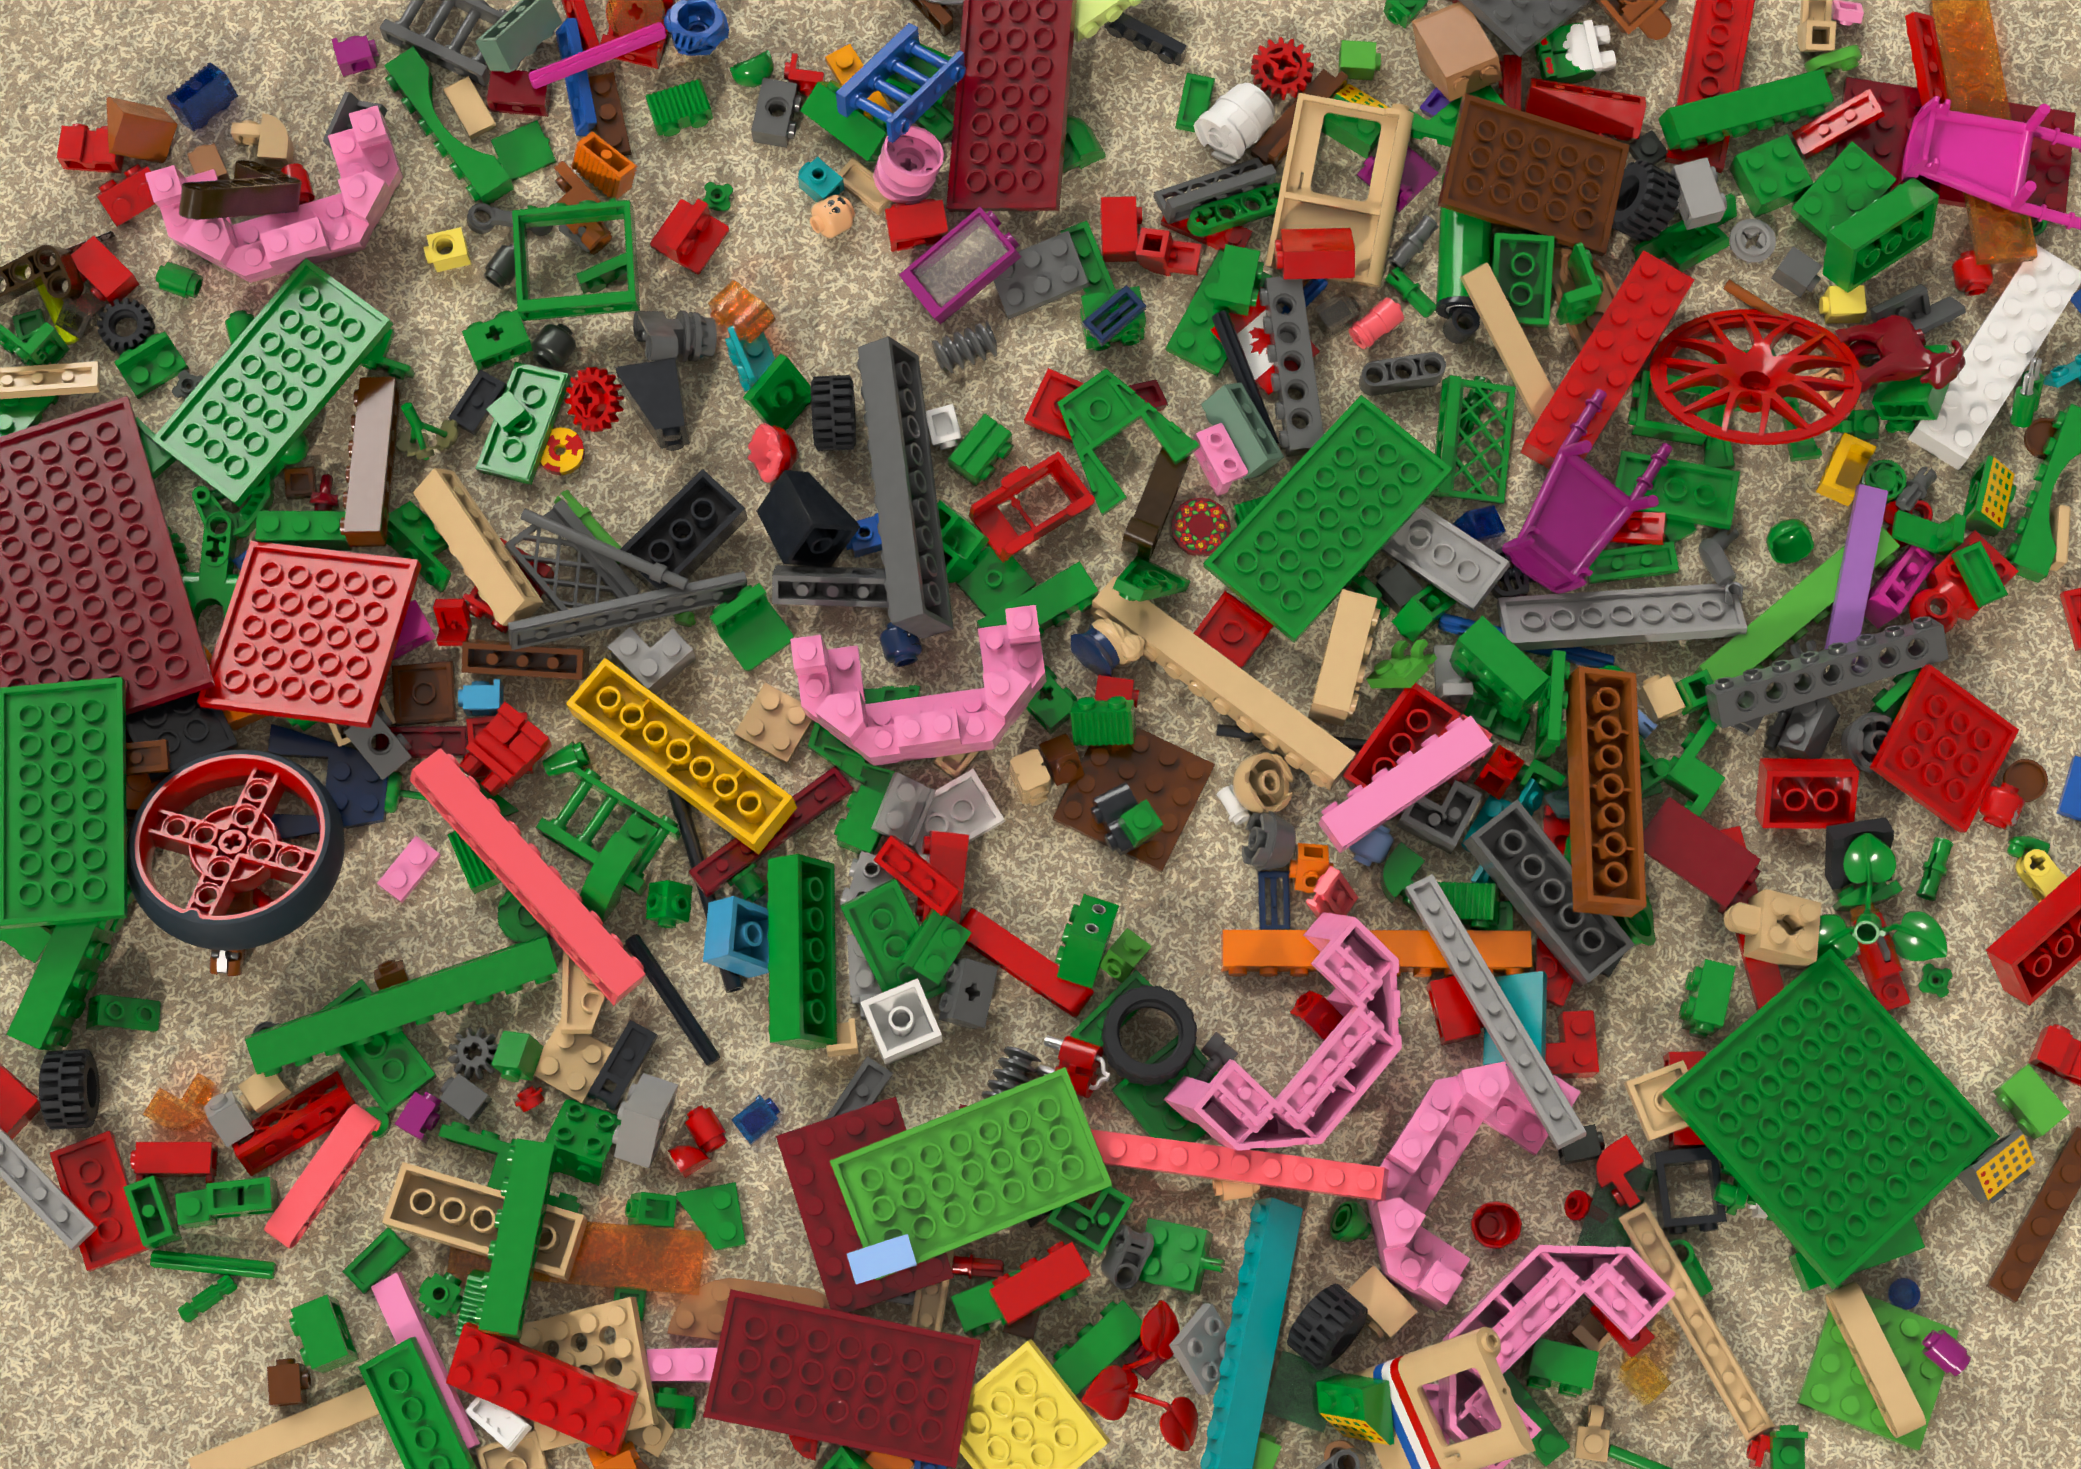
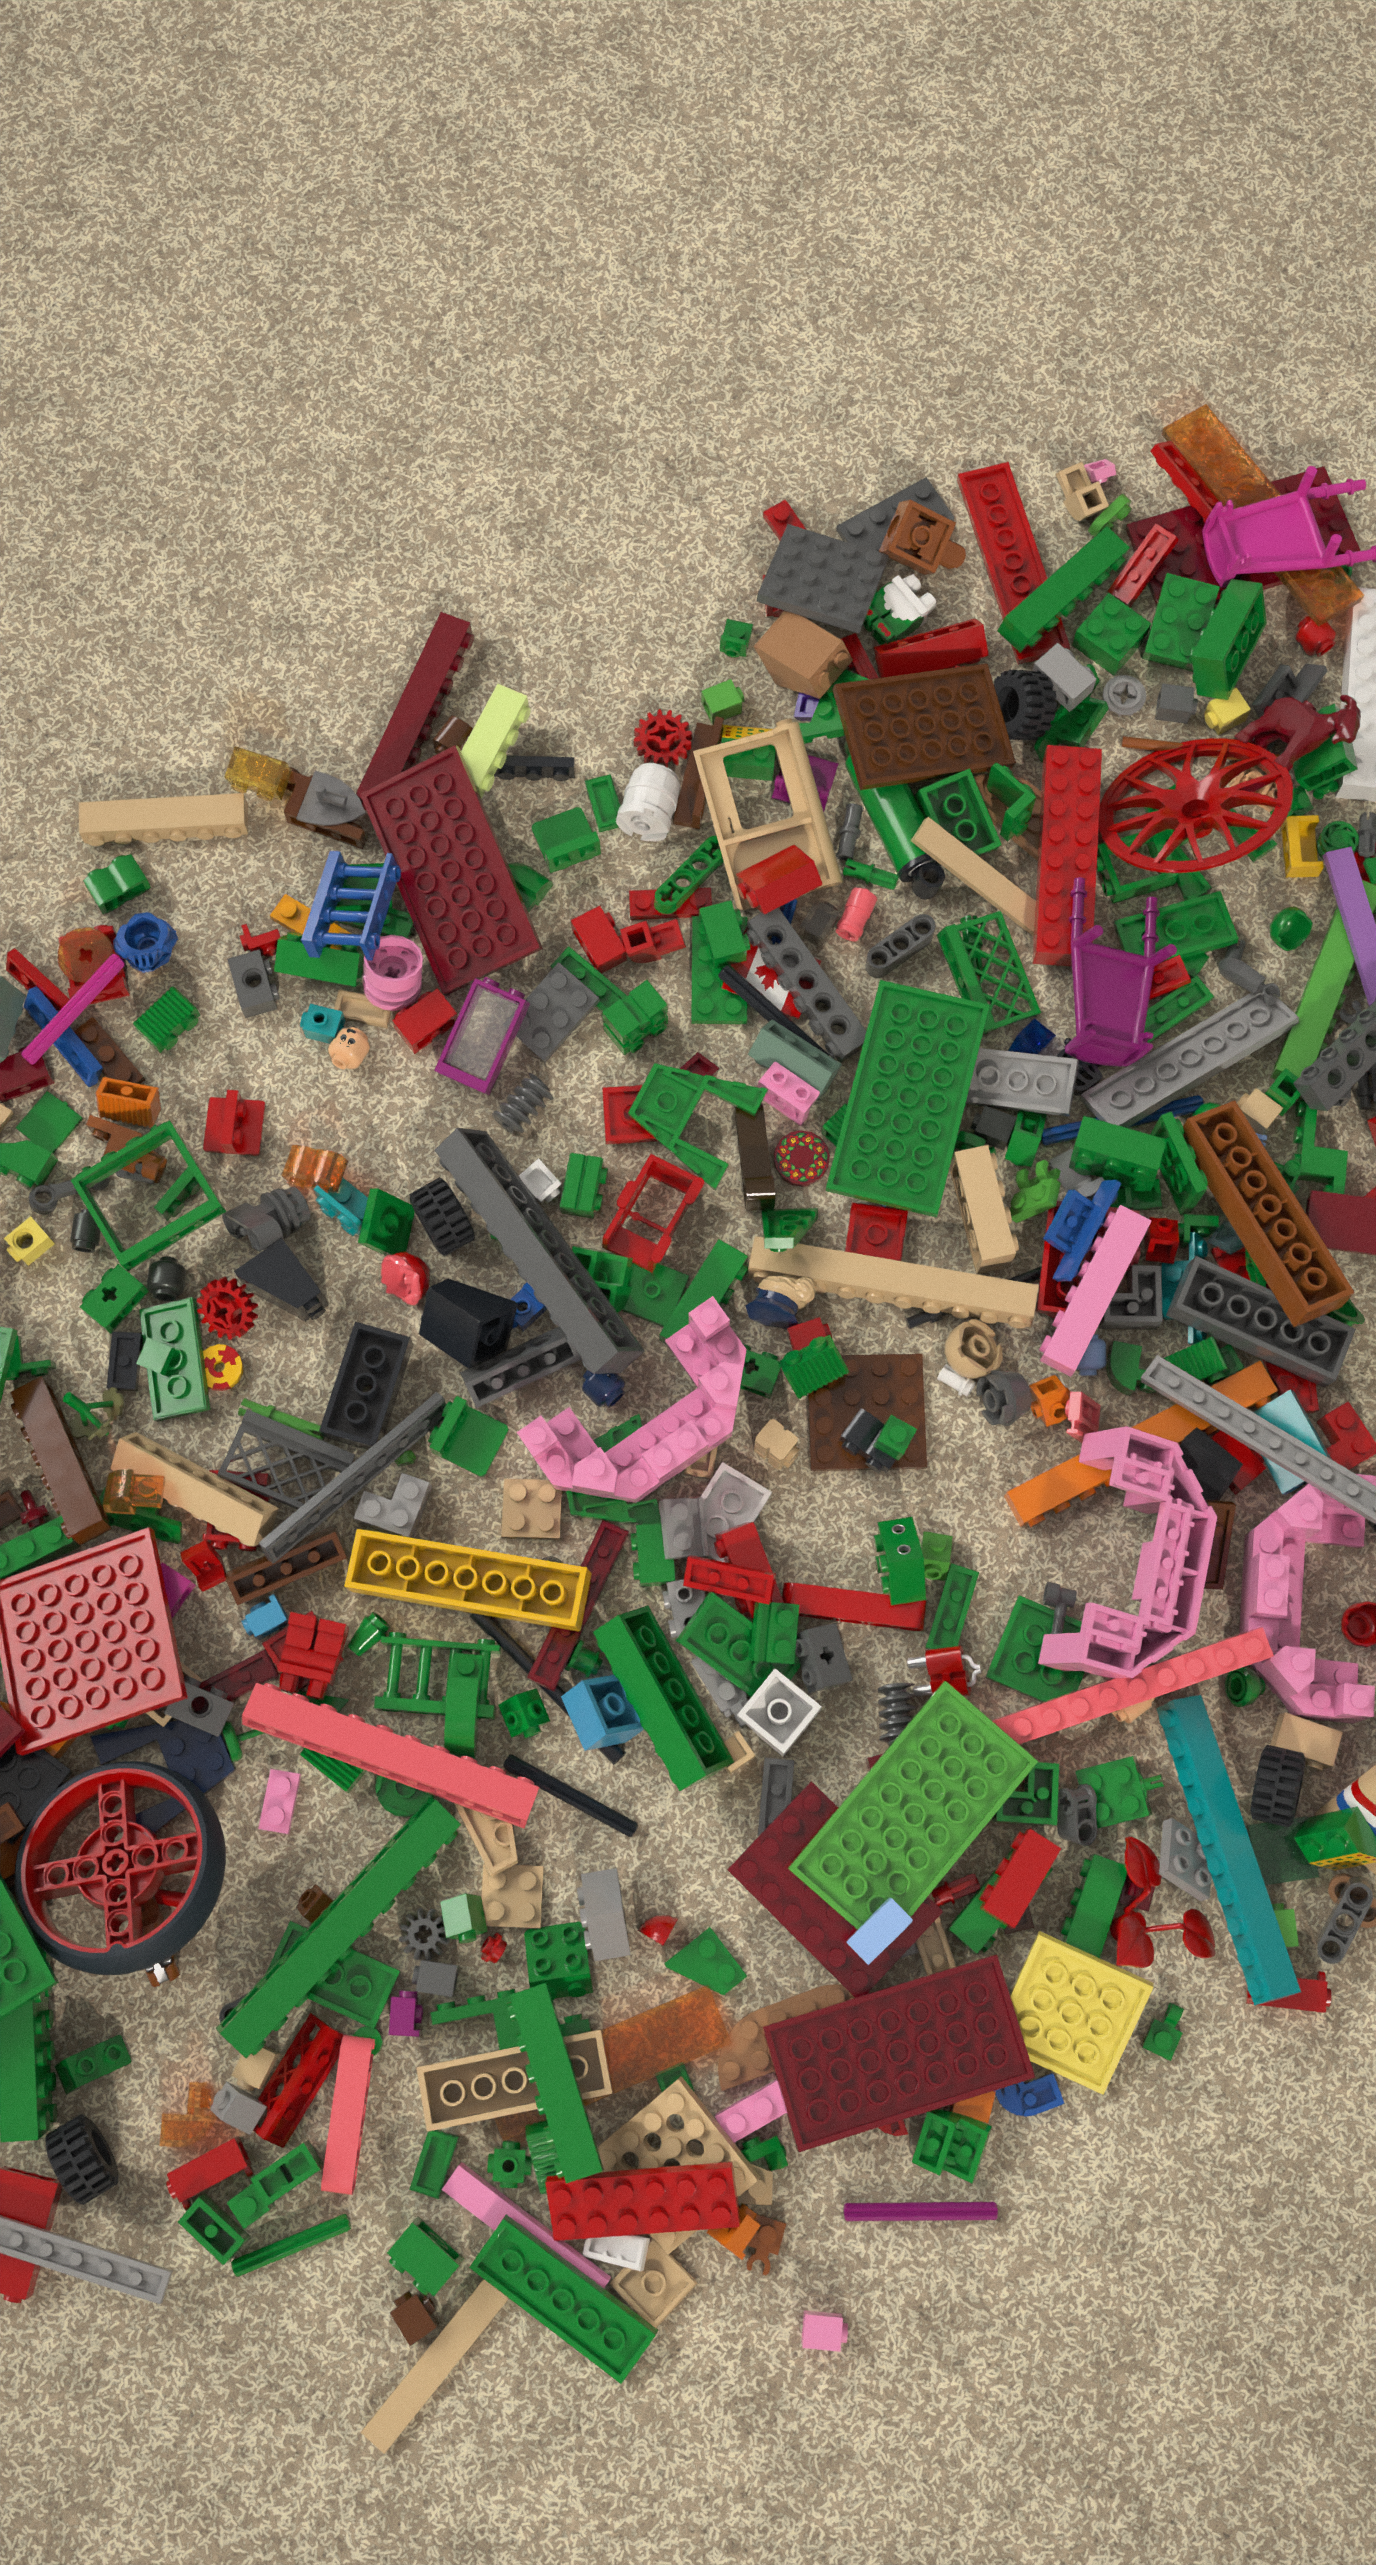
camera: 25 degrees left, 0 degrees up
(94, 1181) = (148, 2229): red plate -> none
(207, 1298) = (302, 2278): green axle -> none
(418, 519) = (127, 1490): none -> clear orange brick
(424, 693) = (211, 1639): reddish brown tile -> none
(623, 1064) = (558, 1874): black plate -> none
(651, 1209) = (650, 1990): green bracket -> none
(657, 571) = (365, 1431): dark grey bar -> none
(706, 1129) = (660, 1894): red brick -> none
(723, 202) = (243, 1072): green plate -> none
(752, 71) = (214, 956): green hair -> none
(757, 1119) = (699, 1861): clear blue bracket -> none
(1061, 759) = (793, 1415): reddish brown brick -> none
(1096, 333) = (631, 1036): dark blue tile -> none
(1139, 119) = (566, 839): none -> green bracket
(1156, 998) = (1026, 1595): black tyre -> none
(1183, 203) = (645, 889): dark grey fence -> none
(1273, 895) = (1024, 1452): dark blue tile -> none
(1317, 1014) = (1121, 1522): red bracket -> none
(1392, 1081) = (1221, 1543): none -> reddish brown plate
(1420, 714) = (1077, 1225): none -> blue bracket
(1422, 1002) = (1210, 1464): none -> black brick
(1648, 148) = (999, 660): pearl dark grey plate -> none

